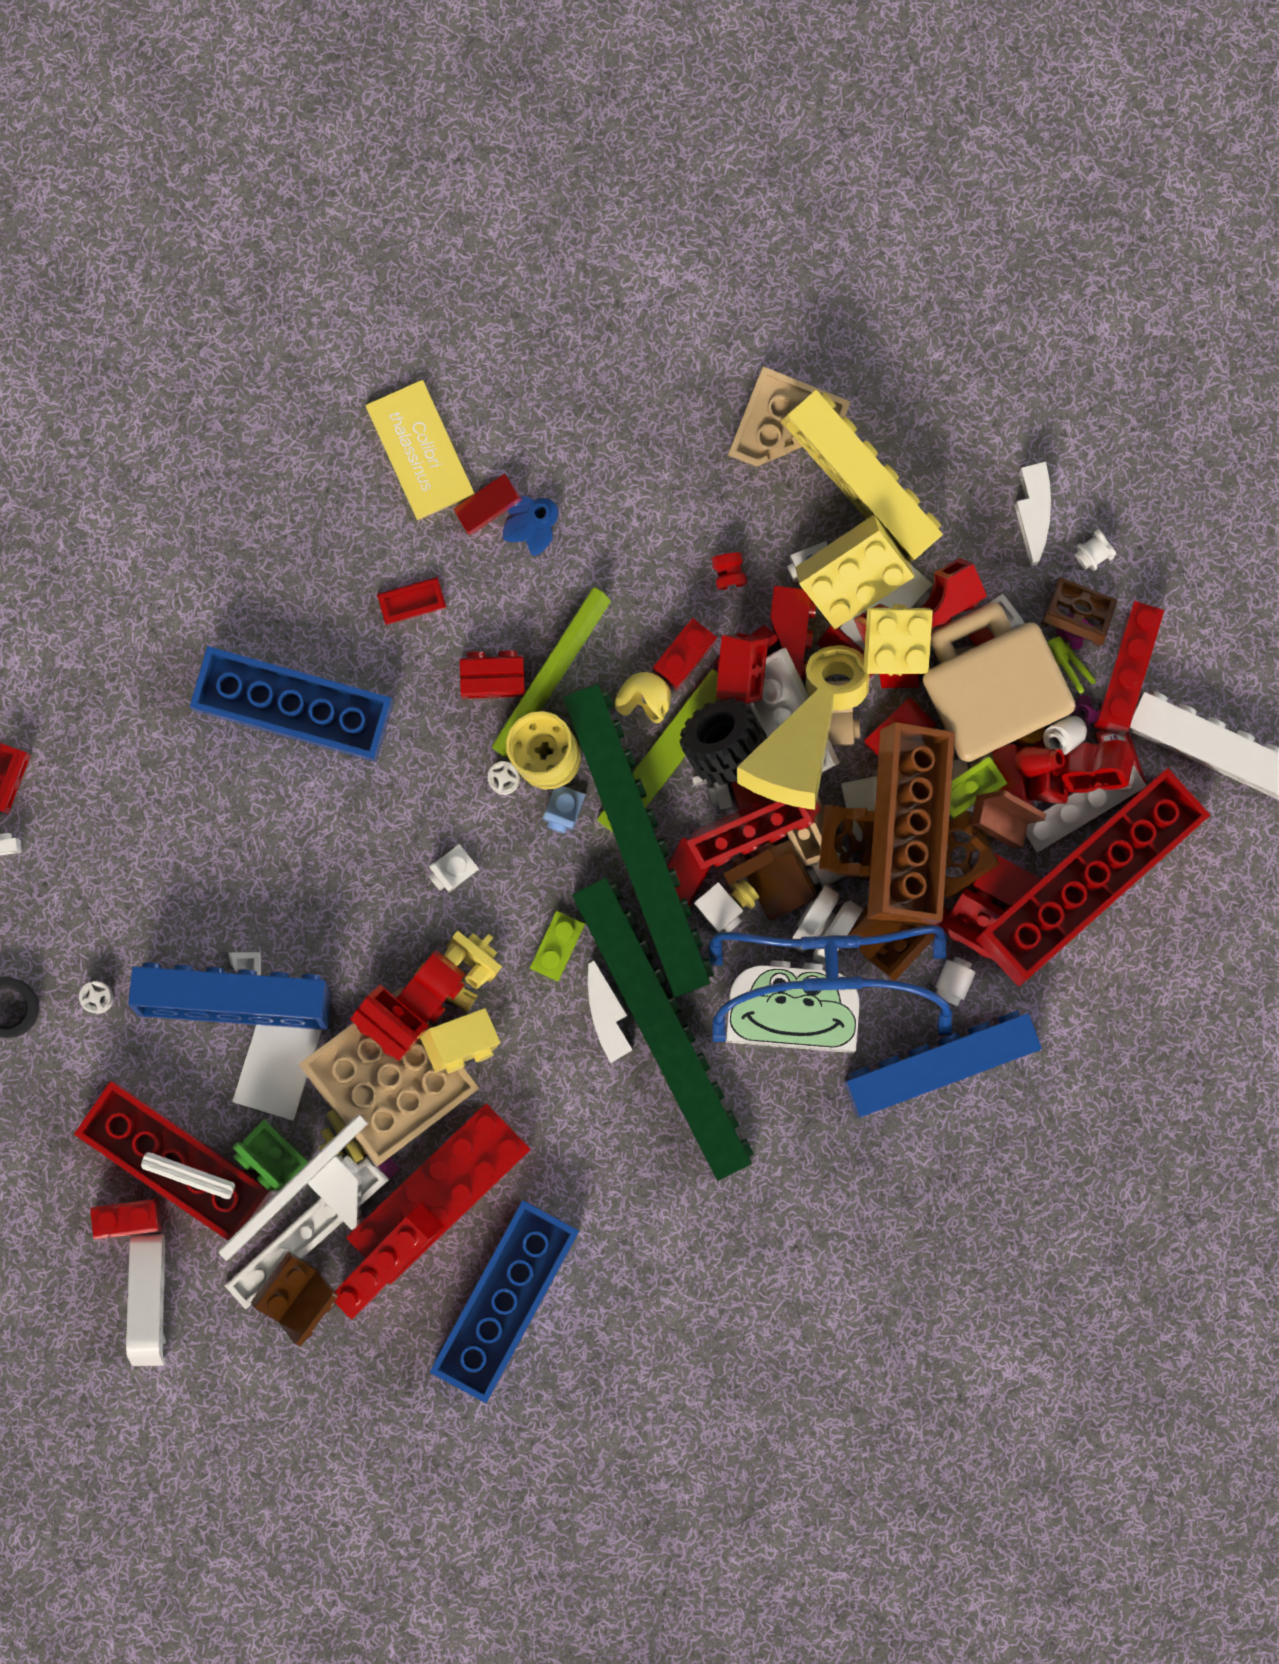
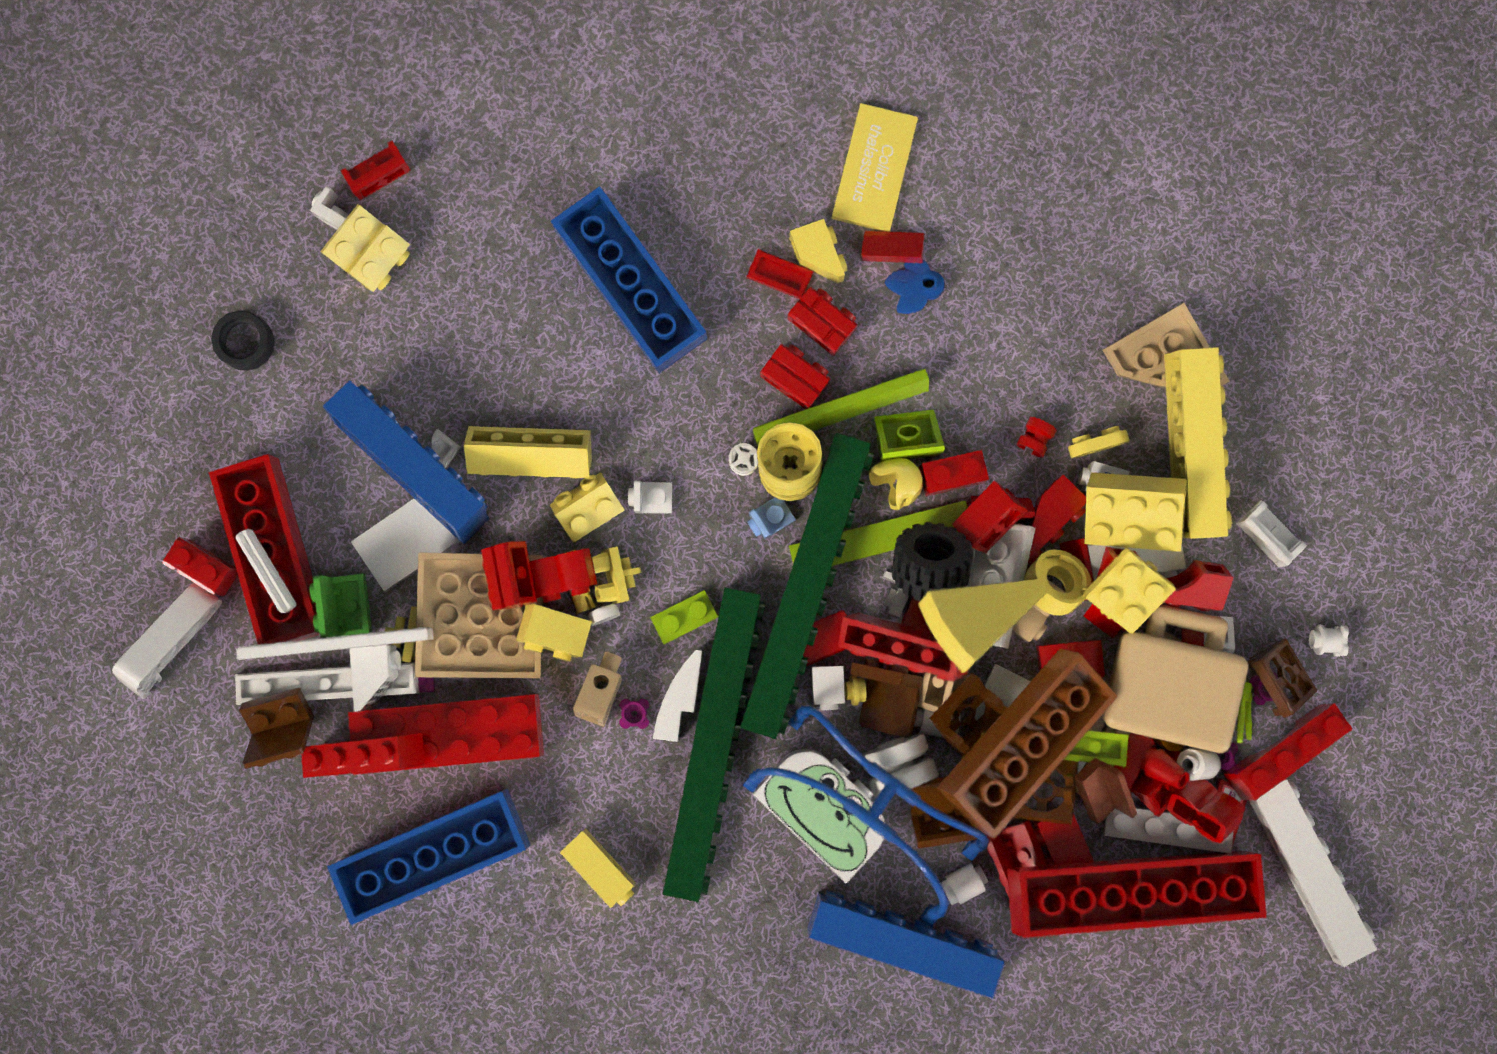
camera: 40 degrees right, 0 degrees up
(51, 850) = (366, 249): none -> light yellow plate
(88, 995) = (307, 381): white wheel -> none
(321, 911) = (528, 452): none -> light yellow brick
(404, 919) = (586, 507): none -> light yellow bracket
(427, 558) = (816, 250): none -> light yellow slope
(478, 612) = (822, 320): none -> red brick
(490, 995) = (604, 614): none -> white tile
(538, 1070) = (595, 703): none -> tan torso
(578, 1066) = (628, 720): none -> magenta plate
(623, 651) = (909, 435): none -> lime slope
(650, 1203) = (599, 869): none -> light yellow brick
(776, 545) = (1110, 438): none -> light yellow plate
(982, 501) = (1271, 535): none -> white hinge
(1035, 509) = (1307, 572): white slope -> none

